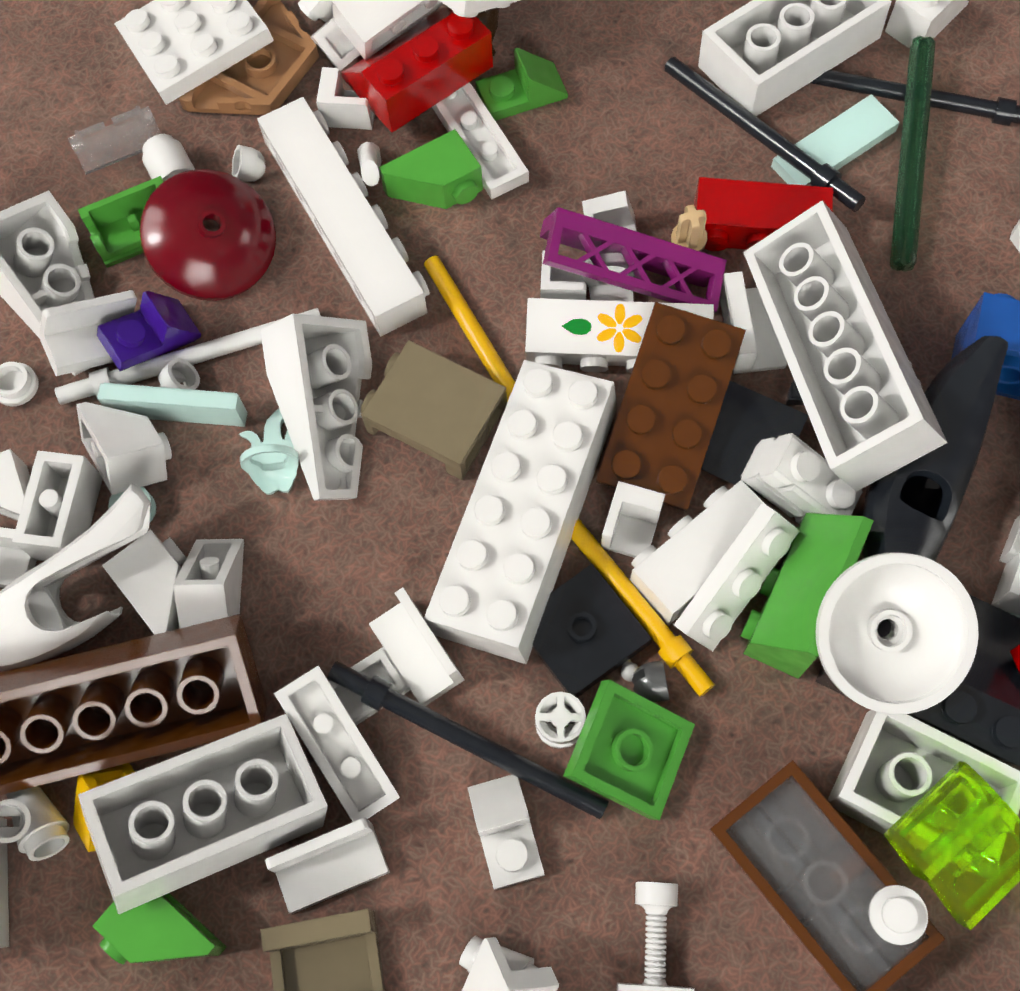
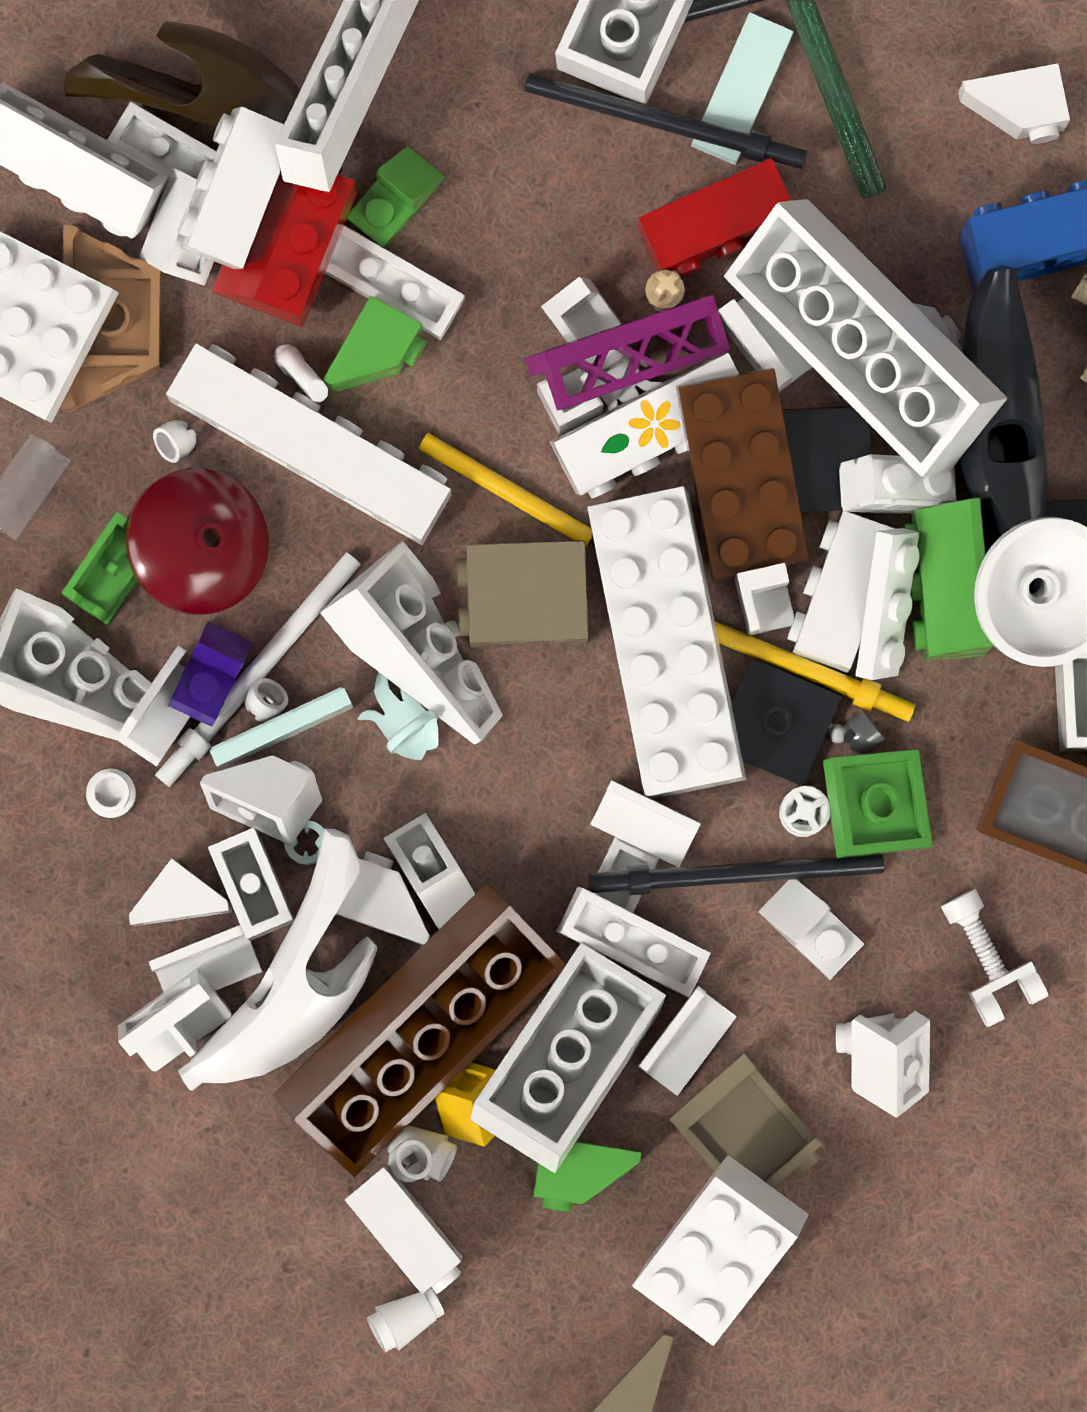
camera: 35 degrees left, 15 degrees up
(165, 157) = (102, 488): white brick -> none
(340, 106) = (227, 319): white panel -> none

